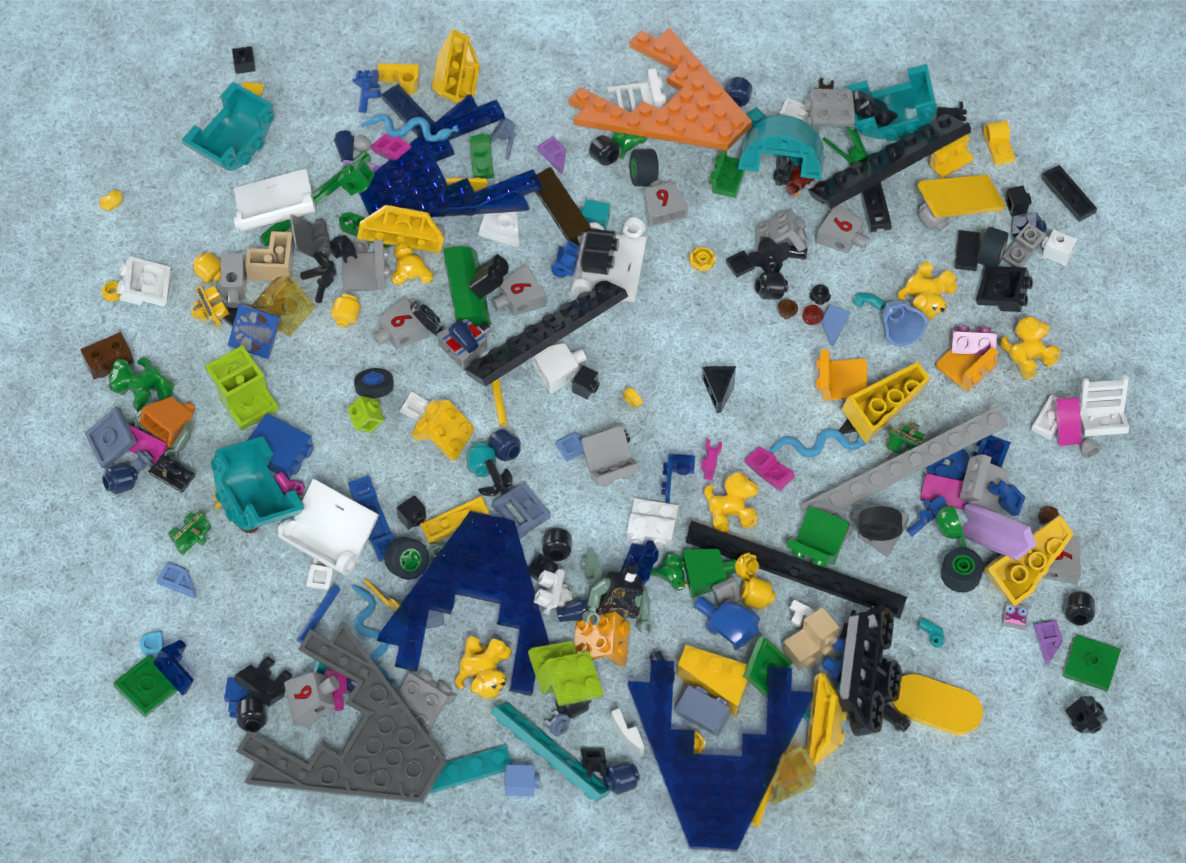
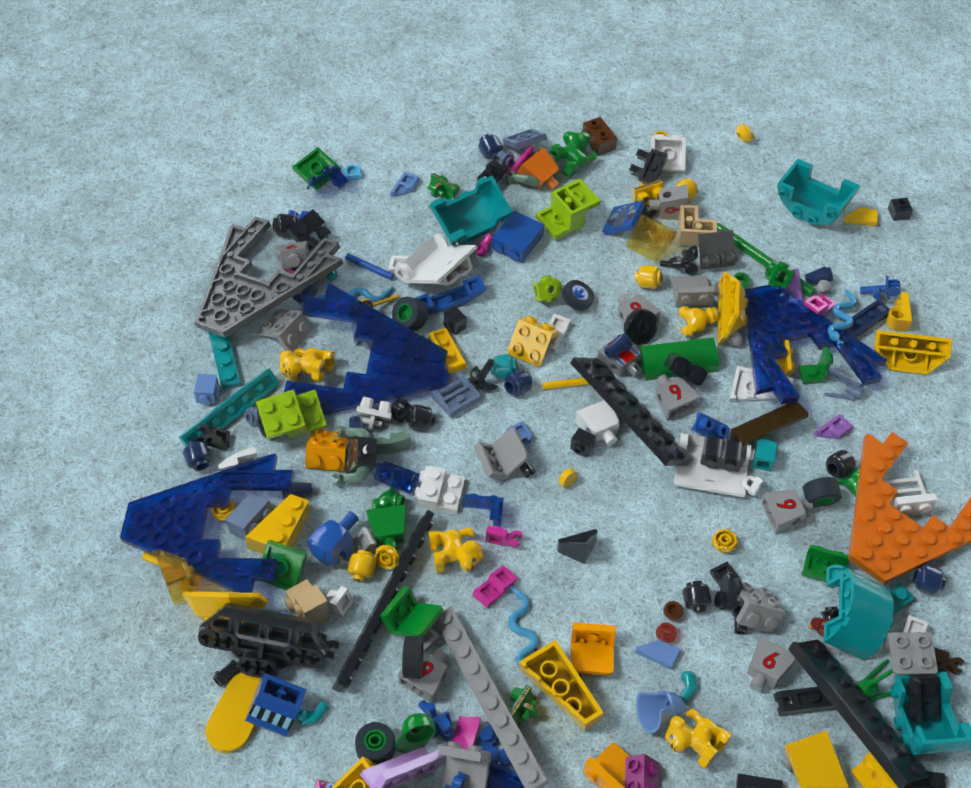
camera: 90 degrees right, 5 degrees down
(171, 297) = (653, 166): none -> black plate
(273, 200) = (754, 229): white door -> none
(342, 247) = (710, 273): black plate -> none
(820, 290) = (691, 636): black plate -> none
(932, 660) = (275, 704): none -> blue slope

